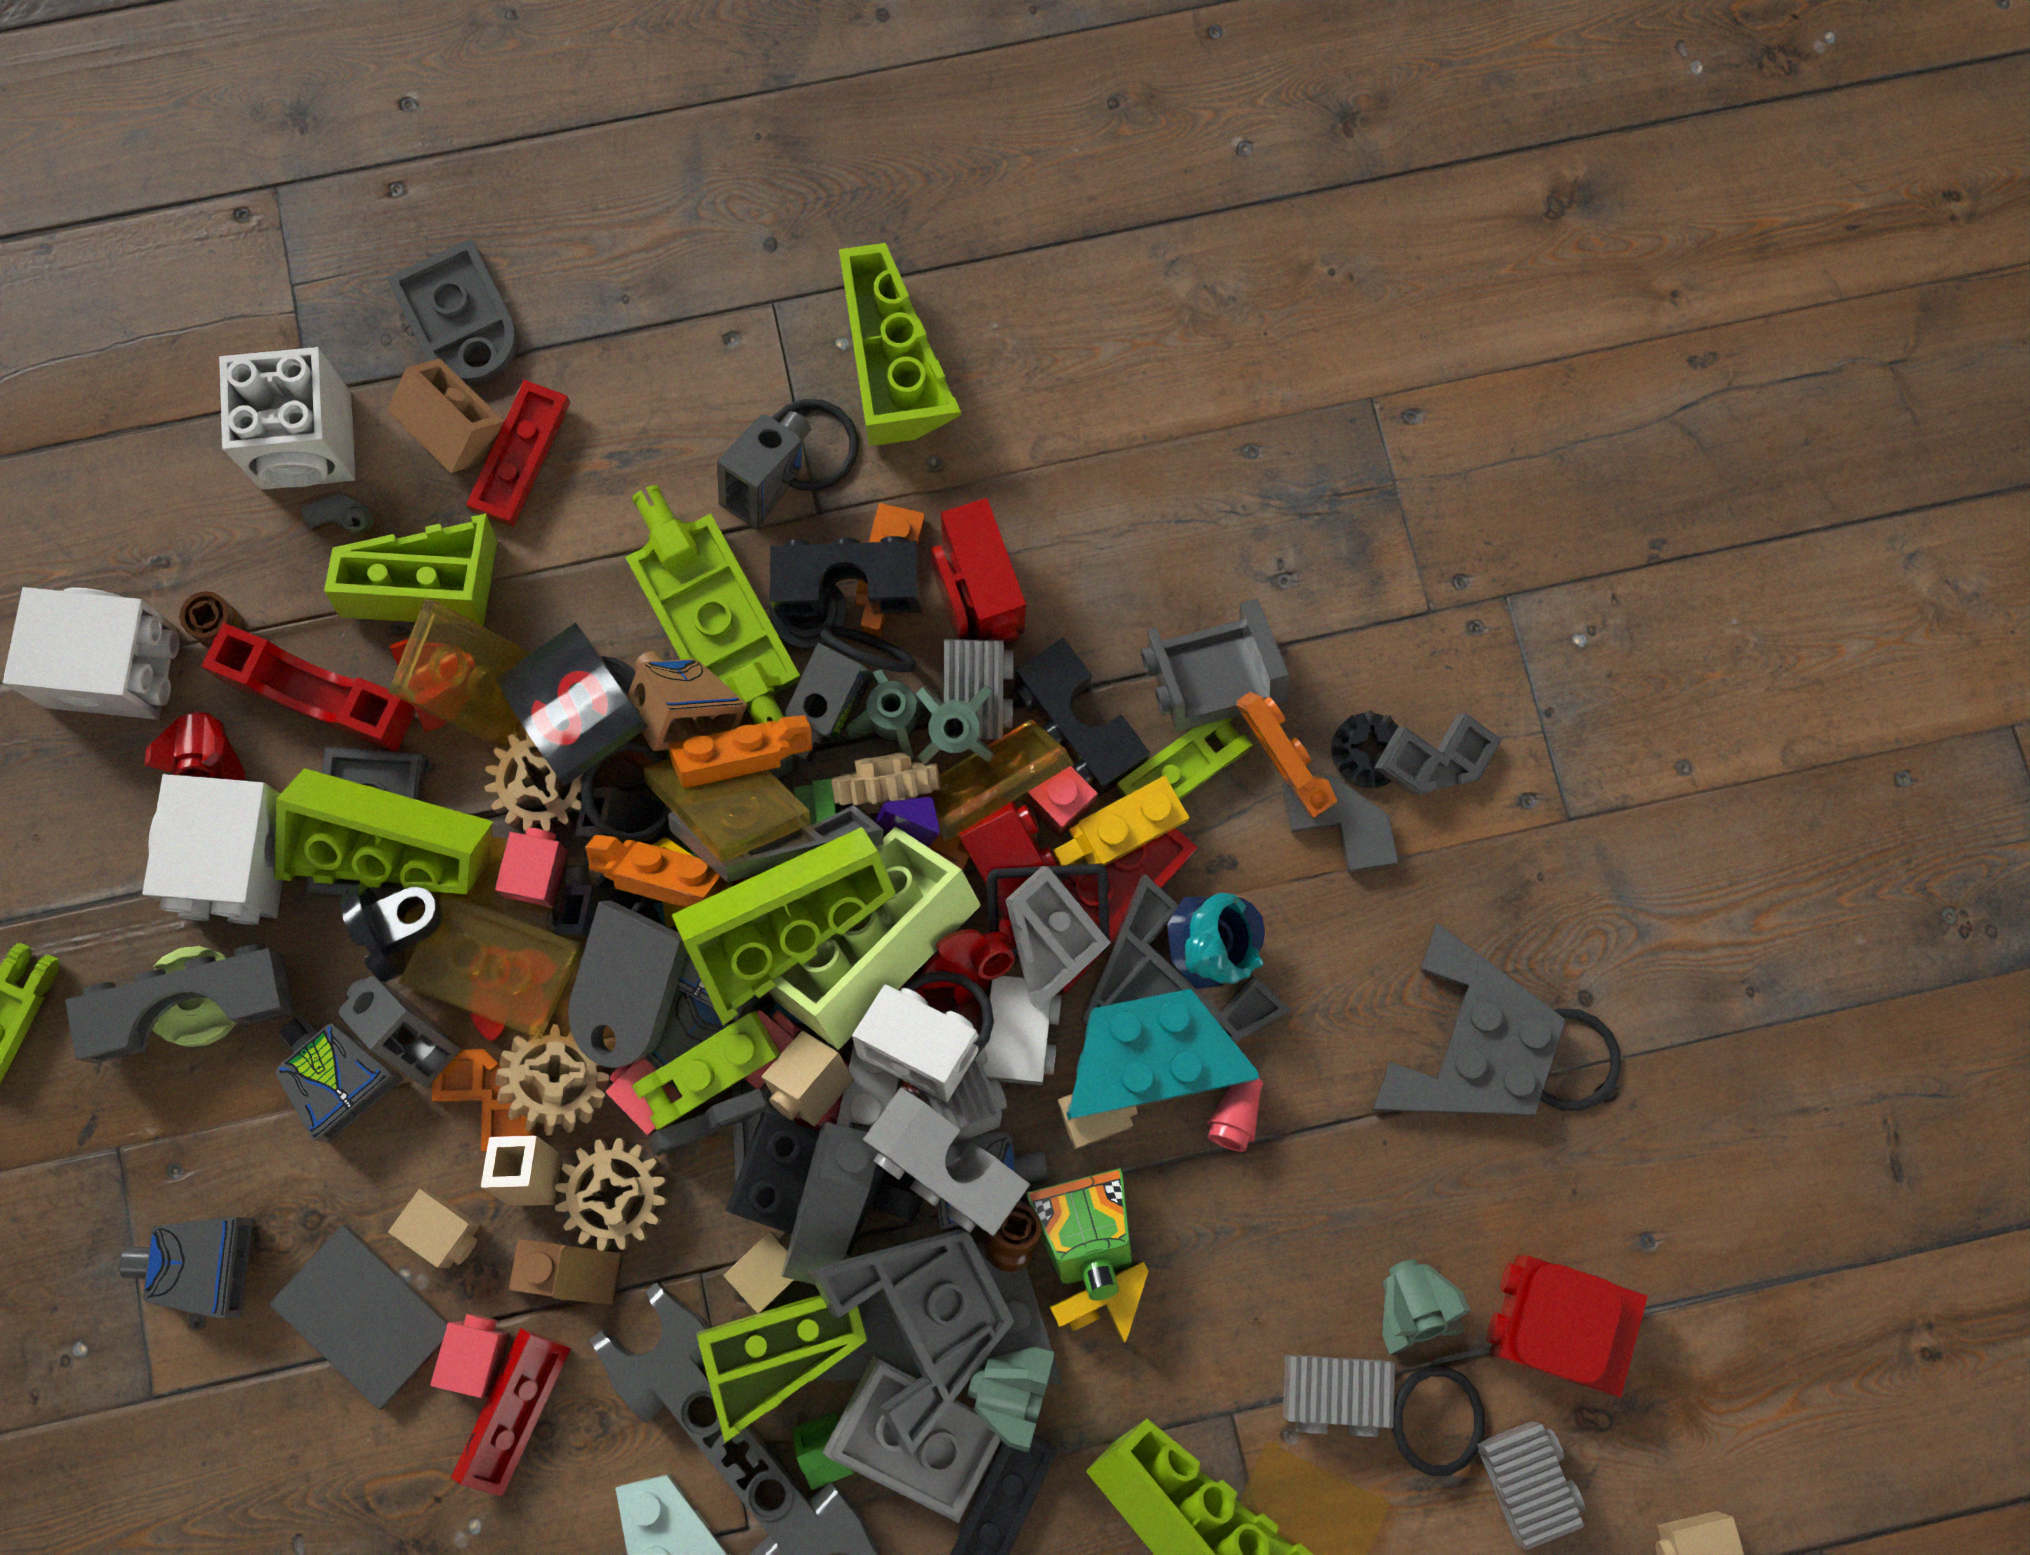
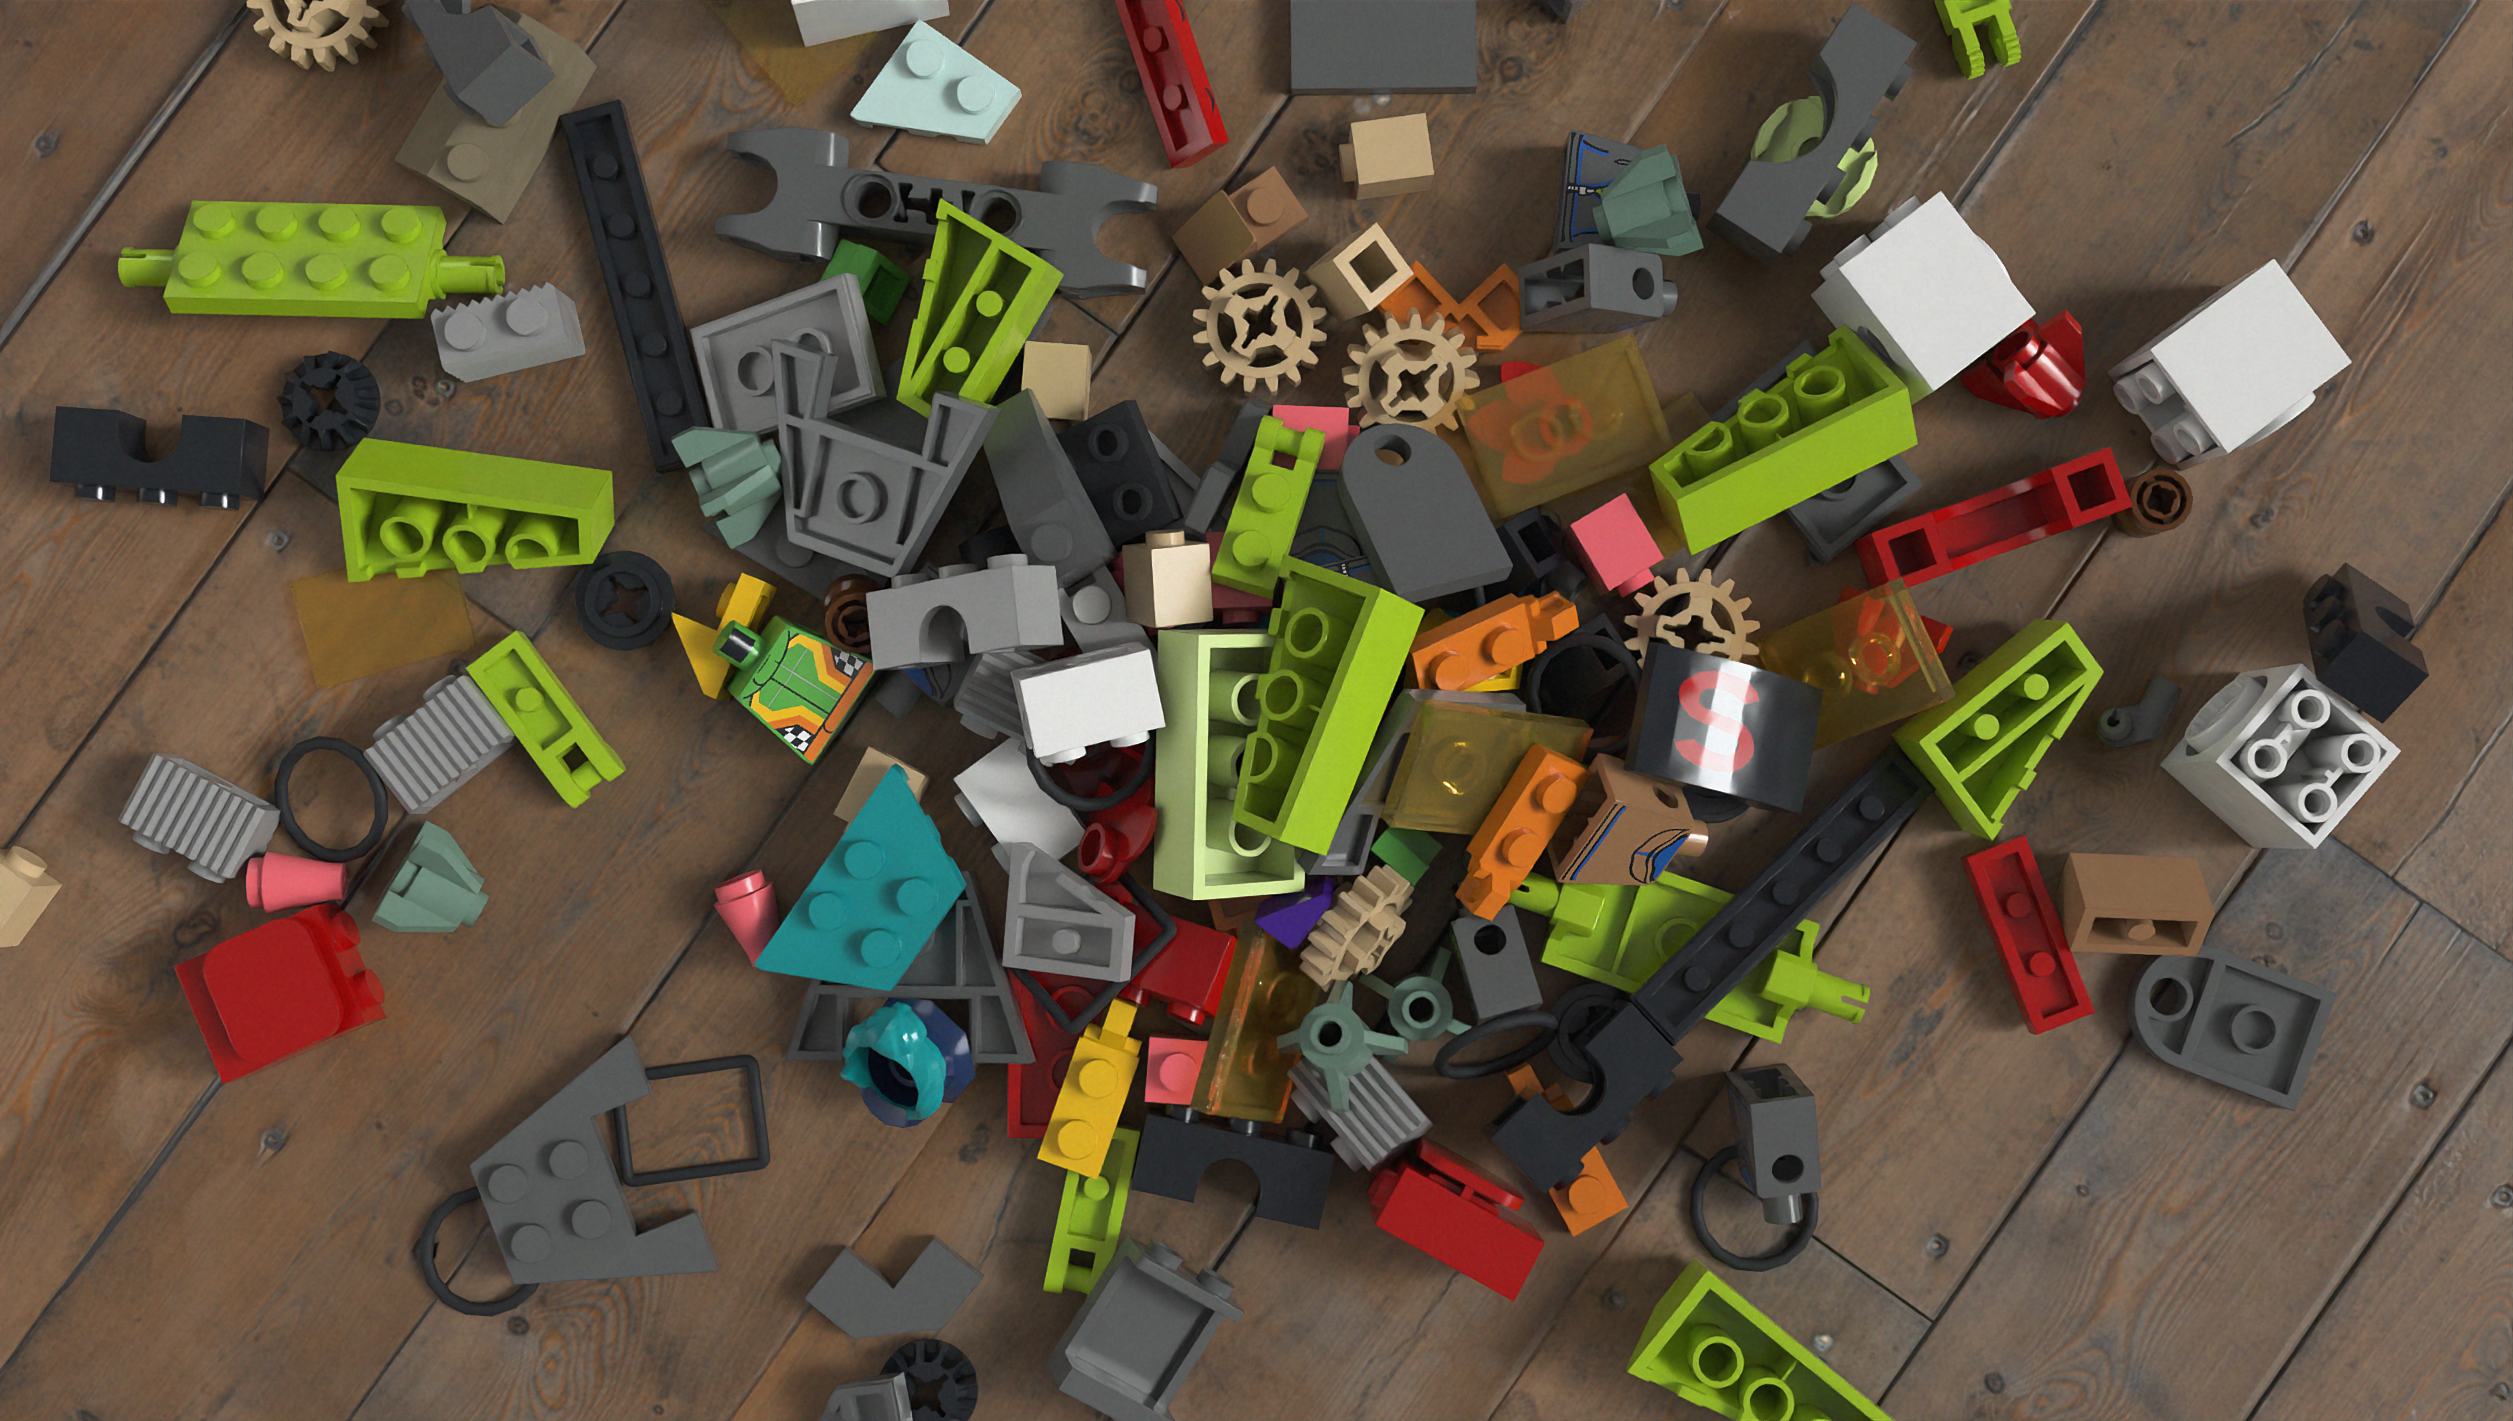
camera: 140 degrees right, 10 degrees up
(181, 440) = (2360, 642): none -> black arch
(316, 1043) = (1648, 207): none -> sand green brick
(383, 928) = (1697, 364): black tile -> none
(470, 1356) = (1251, 79): coral brick -> none
(630, 591) = (1781, 895): none -> black tile
(1163, 1402) = (598, 593): none -> black gear
(1261, 1353) = (544, 717): none -> lime plate
(1287, 755) = (994, 1306): orange hinge -> none
(1393, 988) = (701, 1171): none -> black piece
(1505, 1389) = (291, 882): none -> coral cone

